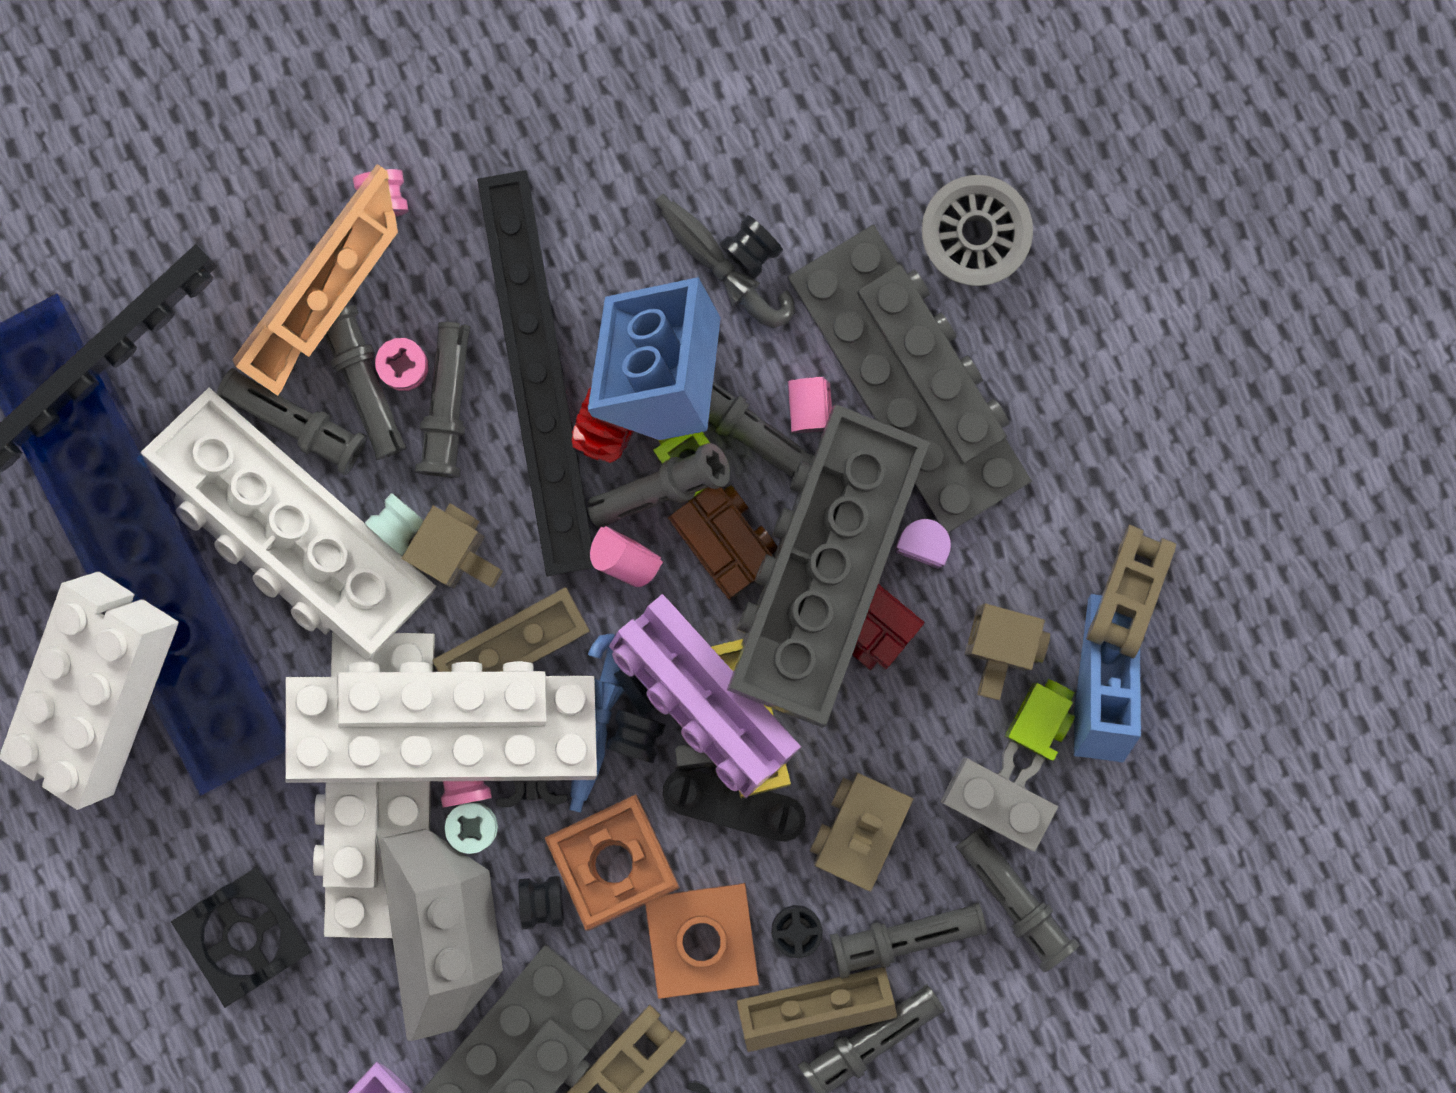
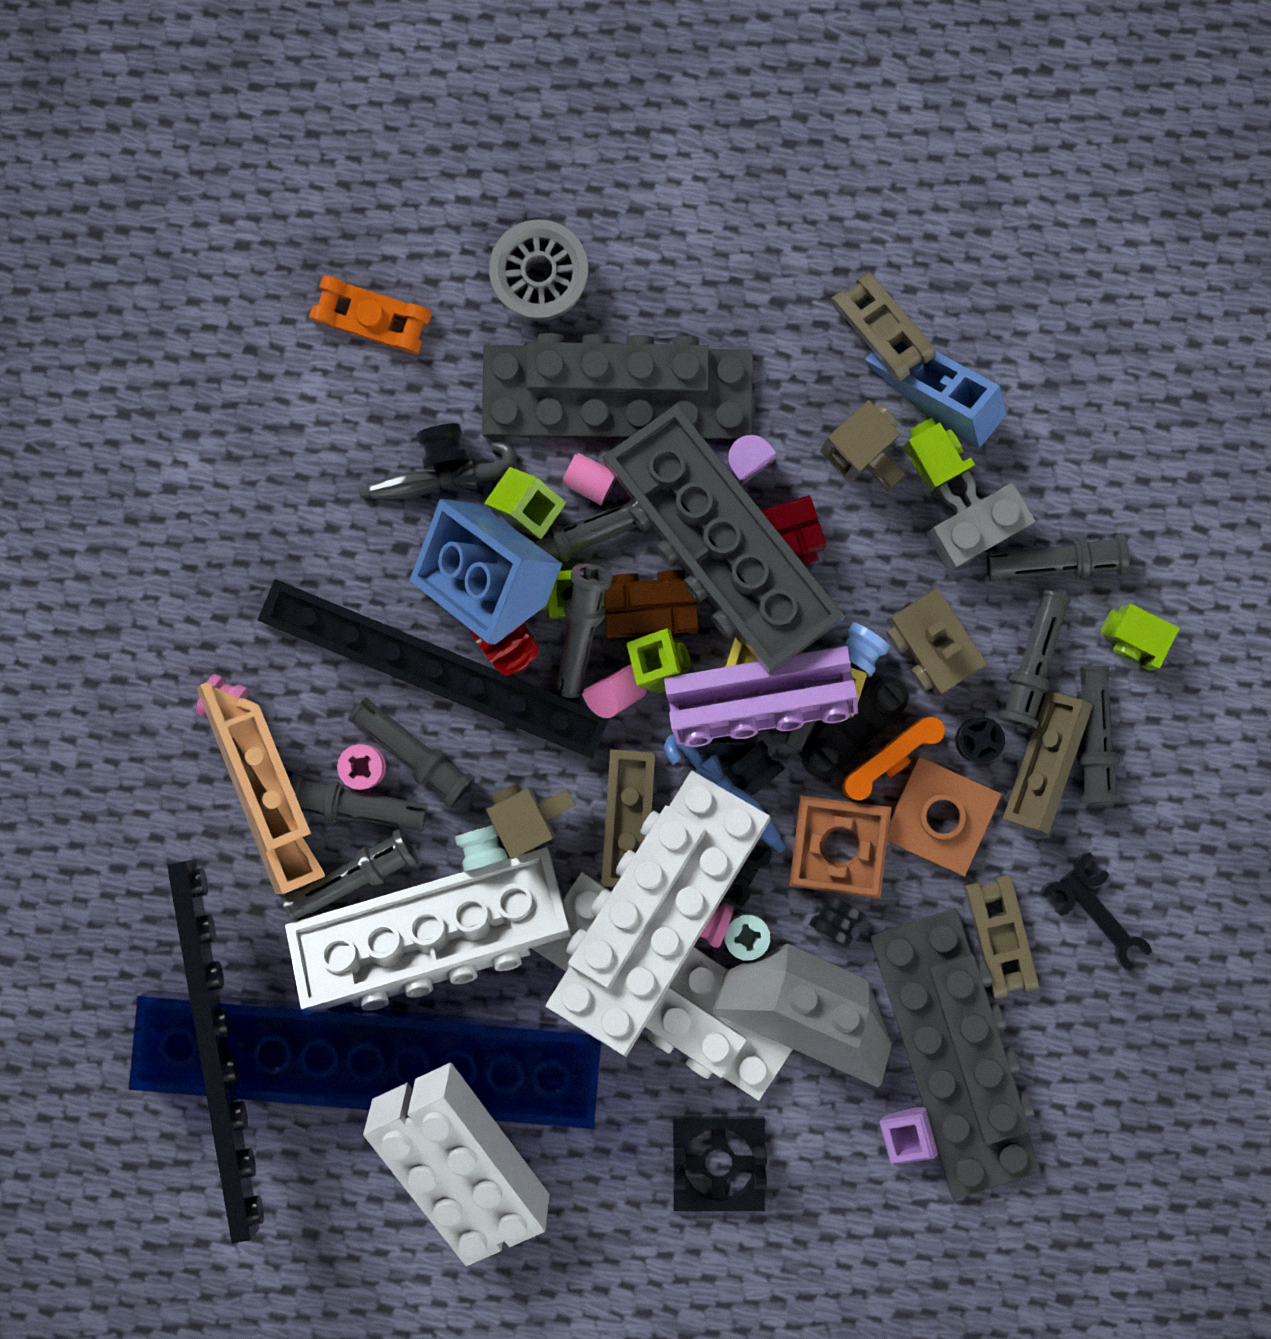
camera: 55 degrees left, 0 degrees up
(684, 585) = (664, 657): none -> lime brick
(726, 857) = (891, 757): none -> orange plate
(747, 359) = (525, 502): none -> lime brick
(812, 766) = (864, 648): none -> light blue wheel
(833, 99) = (370, 315): none -> orange plate
(992, 1020) = (1139, 635): none -> lime brick

